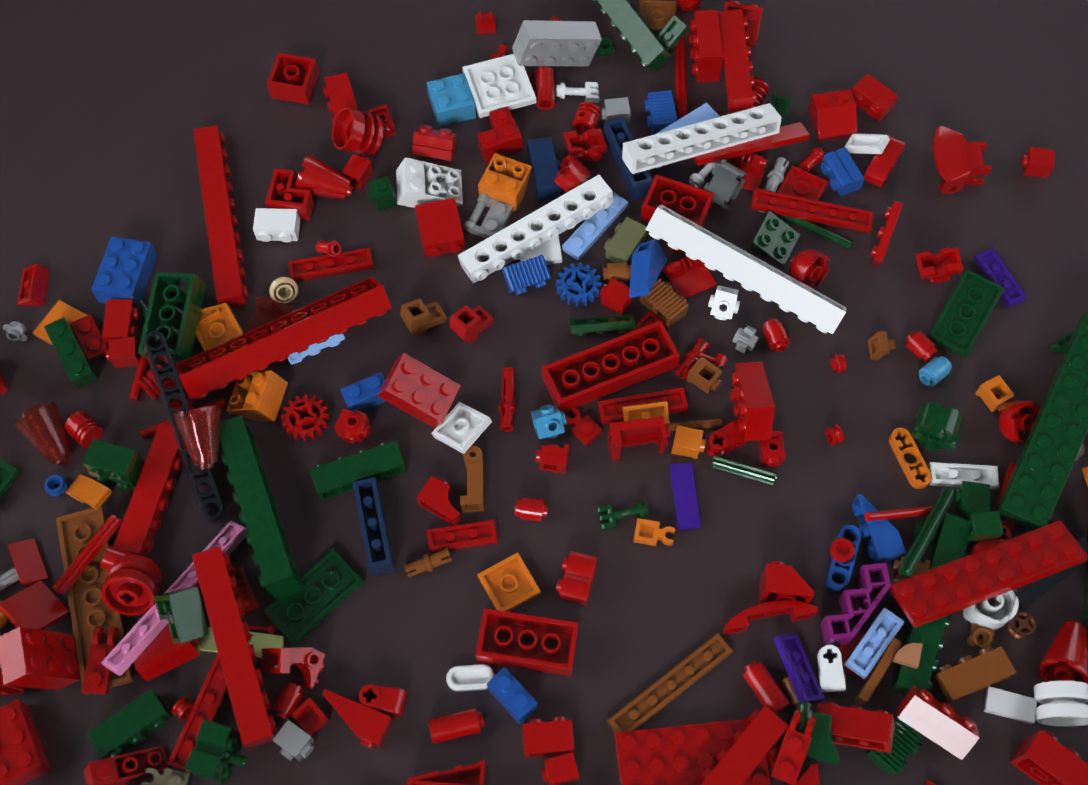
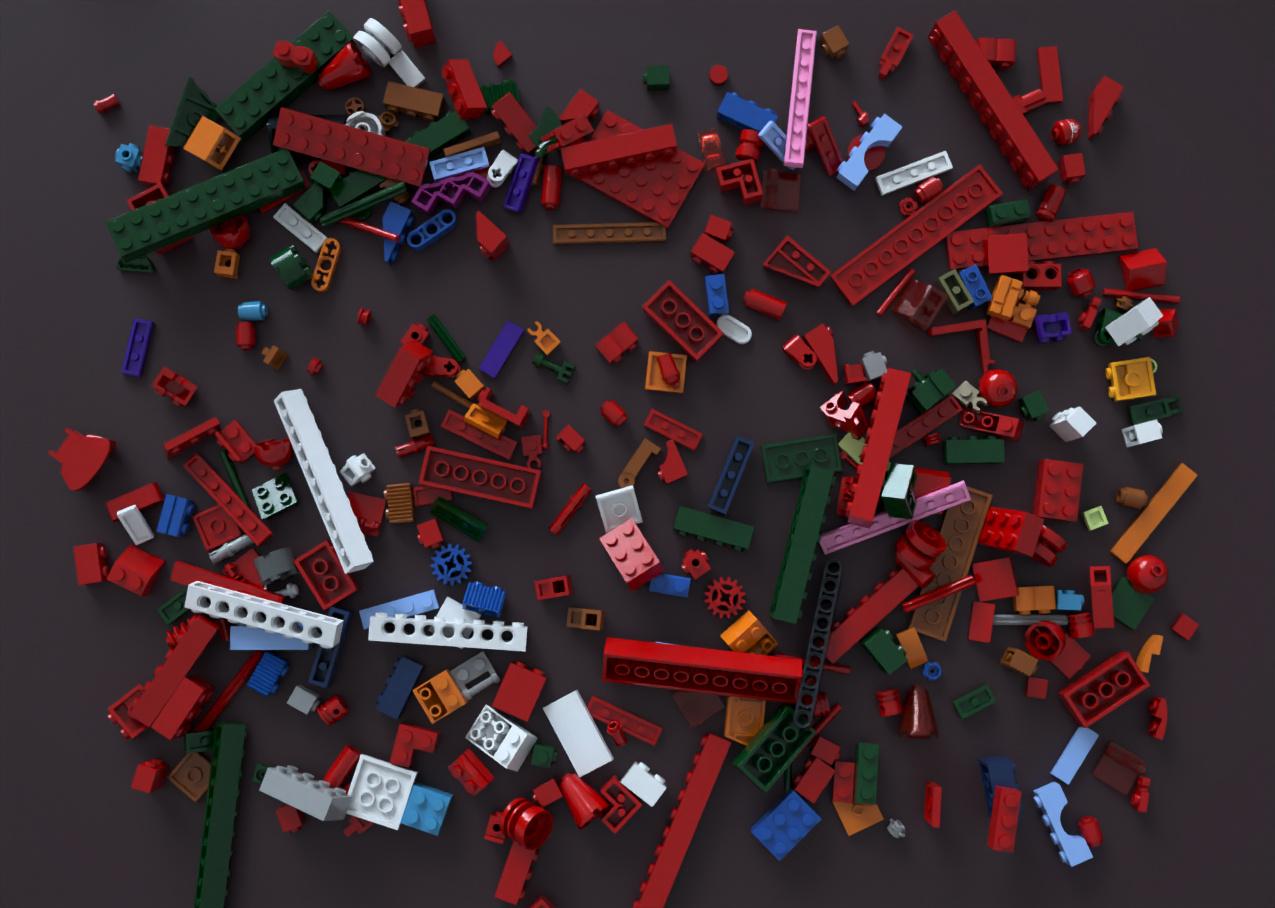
camera: 145 degrees left, 20 degrees up
(33, 285) = (861, 866): red slope -> none
(97, 676) = (969, 510): red hinge -> none
(200, 434) = (811, 621): clear red cone -> none
(283, 290) = (674, 720): tan cone -> none
(364, 229) = (578, 733): none -> white tile
(427, 563) = (709, 425): dark orange pin -> none
(485, 23) = (341, 873): red tile -> none
(506, 582) = (668, 369): none -> red piece
(548, 421) = (555, 467): dark azure brick -> none
(571, 174) = (385, 659): red cylinder -> none
(586, 145) = (353, 685): red cylinder -> none
(590, 91) = (330, 754): white hinge -> none
(595, 467) = (546, 414): none -> red hinge
(619, 271) = (415, 553): dark orange brick -> none
(625, 241) = (388, 574): olive brick -> none
(645, 267) = (395, 535): blue slope -> none
(718, 361) = (398, 430): red hand -> none
(745, 339) = (365, 431): light grey gear -> none
(776, 335) = (341, 419): red brick -> none
(796, 610) = (533, 239): red slope -> none
(811, 160) = (187, 544): red pin -> none
(842, 550) = (431, 231): red tile -> none
(847, 258) = (236, 442): none -> red bracket
(909, 655) = (446, 137): nougat tile -> none
(965, 313) = (189, 337): dark green tile -> none
(1038, 162) = (19, 414): red brick -> none

